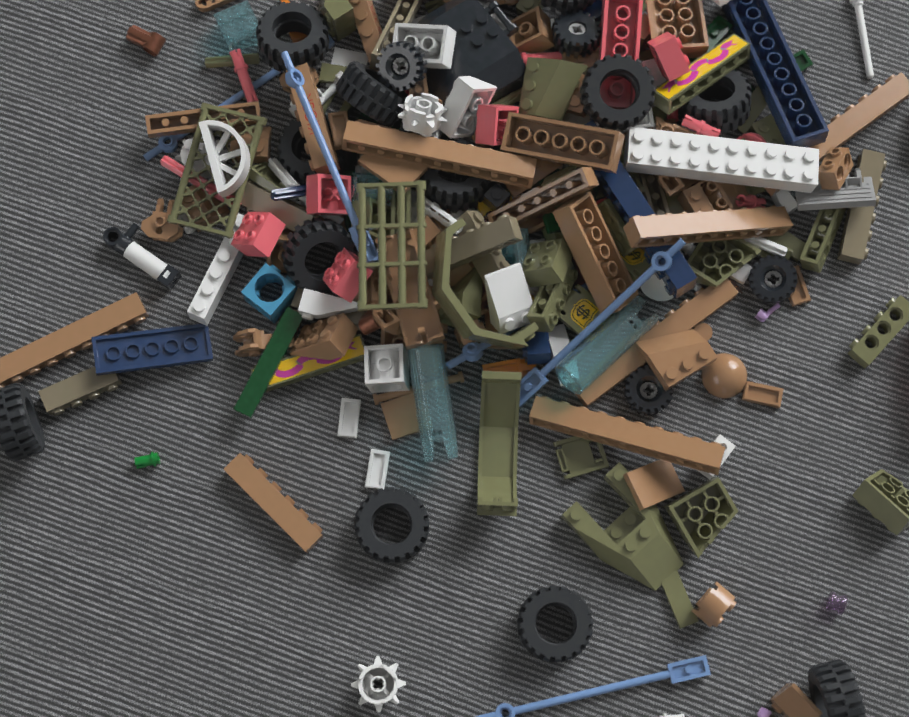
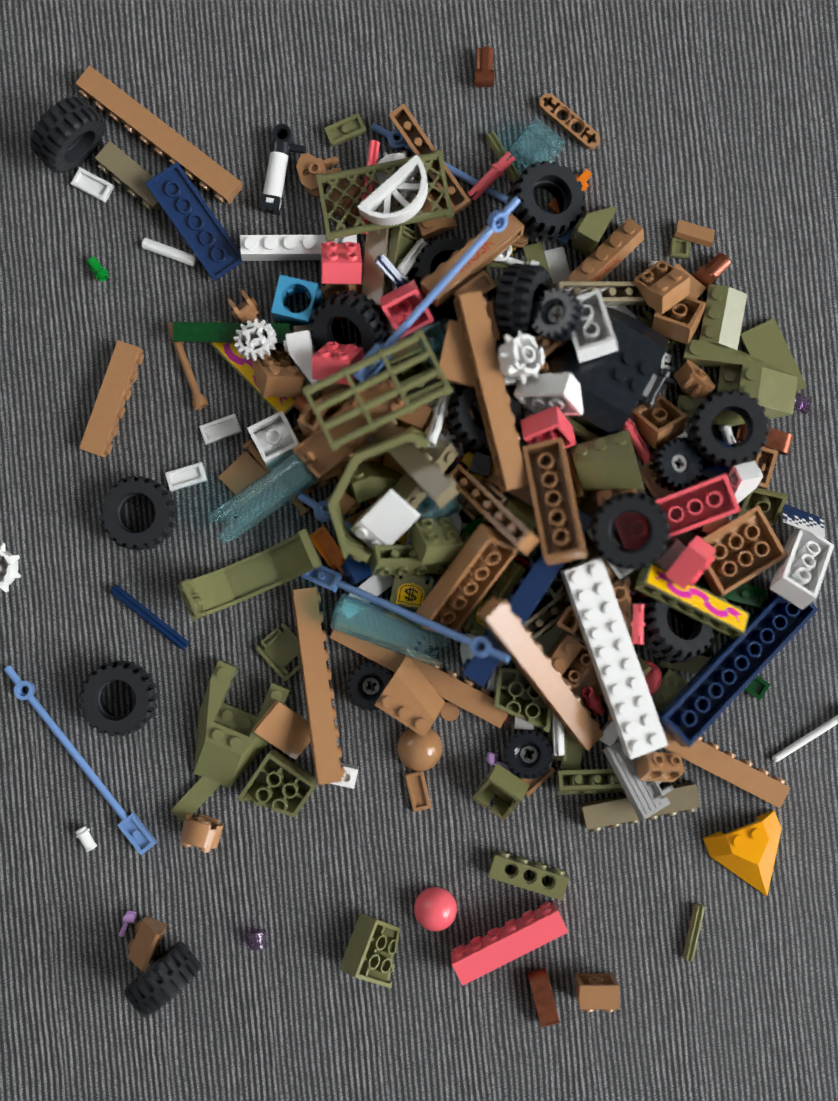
camera: 65 degrees right, 10 degrees up
(67, 429) = (92, 185): none -> white tile
(137, 182) = (345, 130): none -> olive plate
(164, 388) = (169, 252): none -> white axle
(296, 337) = (255, 339): none -> white gear
(313, 424) = (199, 400): none -> medium nougat piece
(491, 563) = (149, 617): none -> dark blue axle
(796, 311) = (506, 786): none -> olive piece
(877, 428) = (435, 909): none -> coral piece

